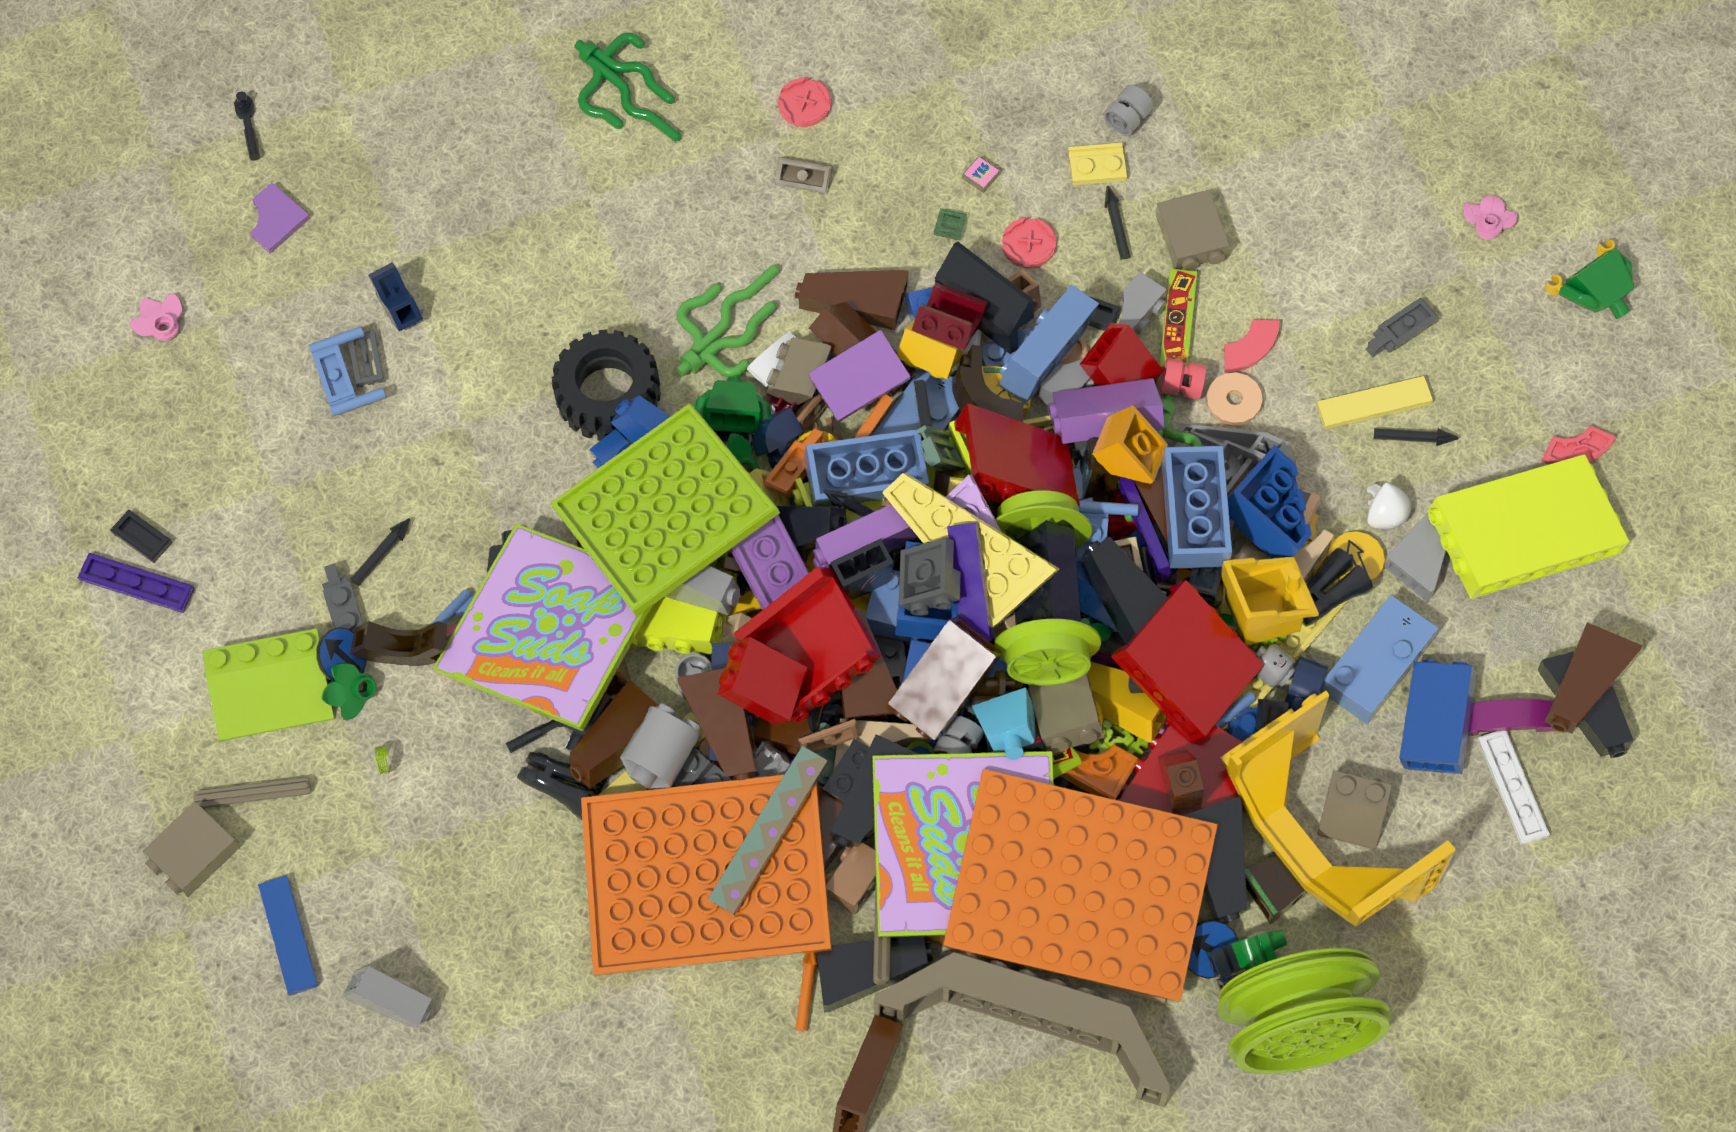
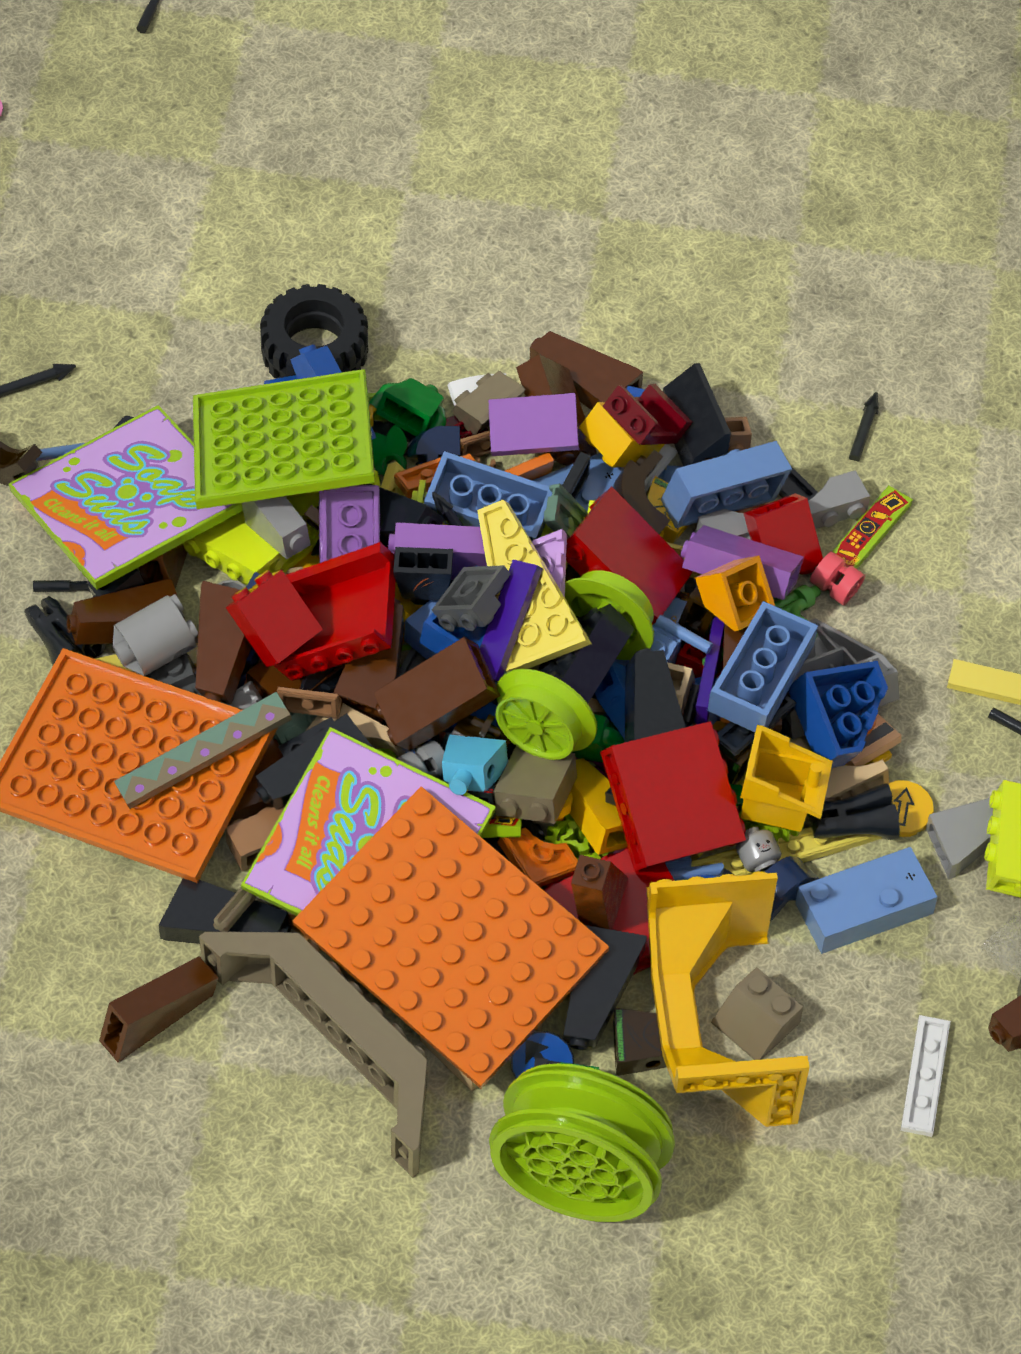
camera: 25 degrees right, 10 degrees down
(277, 218) = (127, 84): medium lavender tile -> none
(335, 375) = (91, 224): medium blue plate -> none
(369, 379) = (120, 242): dark grey tile -> none
(395, 297) = (181, 185): dark blue brick -> none
(602, 66) = (486, 90): green plant -> none
(707, 346) = (426, 351): bright green plant -> none
(803, 175) = (605, 258): dark tan slope -> none
(804, 102) = (646, 201): coral tile -> none
(810, 963) = (153, 913): orange piece -> none
(950, 224) = (711, 357): clear green tile -> none
(981, 174) = (766, 330): tile -> none
(1029, 242) = (773, 405): coral tile -> none
(1097, 163) = (879, 371): light yellow plate -> none
(1129, 108) = (934, 338): light grey wheel -> none
(1192, 230) = (929, 463): dark tan brick -> none
(1234, 384) = (879, 606): light nougat tile -> none
(1252, 347) = (924, 586): coral tile -> none
(1388, 507) = (960, 776): white piece -> none
(1438, 717) = (889, 975): blue brick -> none
(1509, 715) = (949, 1005): magenta slope -> none

